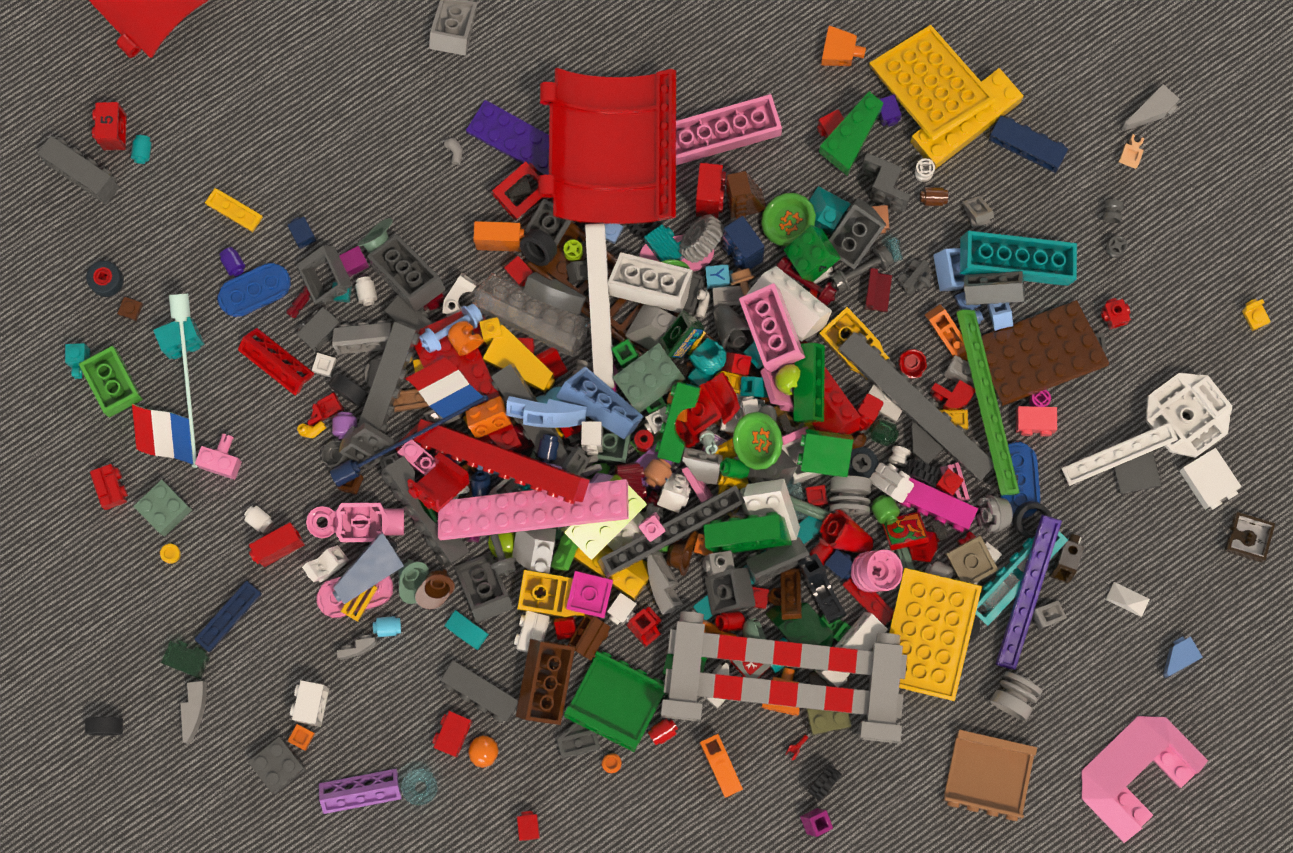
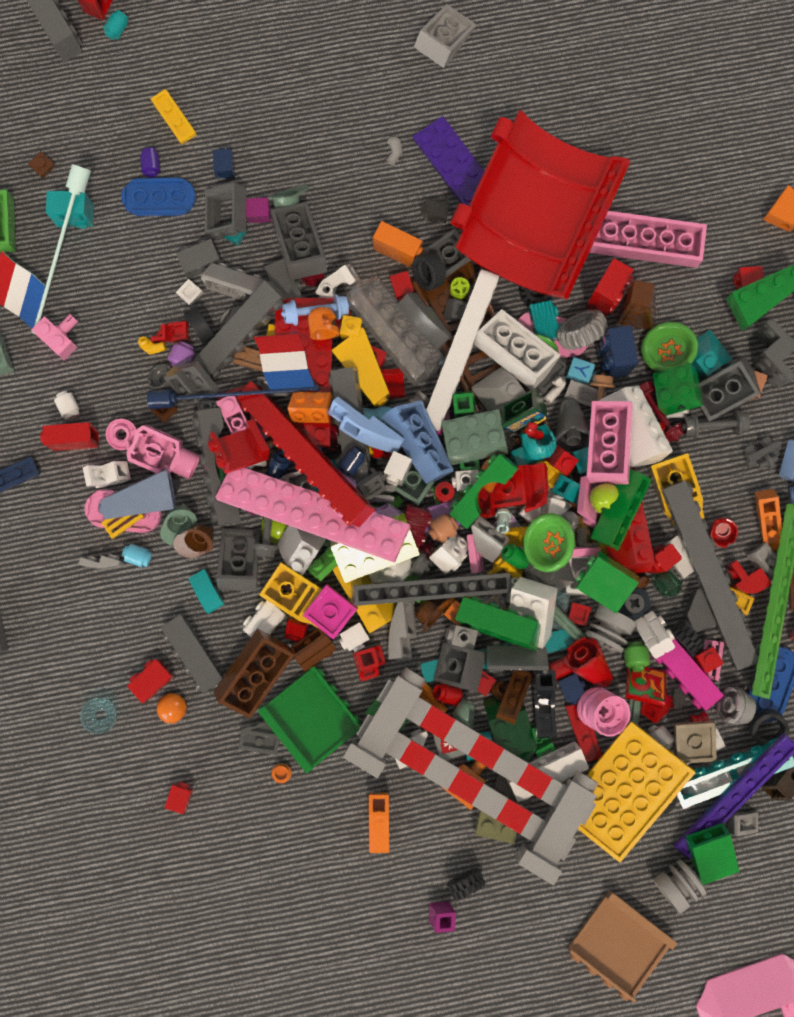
camera: 20 degrees right, 5 degrees up
(110, 284) = (30, 127): black wheel -> none
(272, 362) = (144, 269): red fence -> none
(299, 303) = (192, 227): dark red axle -> none
(301, 737) = (15, 620): orange plate -> none
(309, 703) = (34, 595): white brick -> none
(359, 794) = (42, 696): medium lavender fence -> none
(366, 291) = (256, 242): white brick -> none
(498, 192) = (416, 204): red panel -> none
(613, 232) = (503, 288): light blue plate -> none
(651, 527) = (414, 577): bright pink bracket -> none
(662, 731) = (339, 767): red brick -> none
(699, 350) = (532, 432): none -> red arm
(795, 748) = (454, 837): red hand -> none
(878, 291) = (721, 450): dark red panel -> none
(894, 248) = (755, 414): clear light blue pin -> none
(899, 456) = (672, 612): white wheel -> none
(1032, 653) = (712, 853): none -> green brick

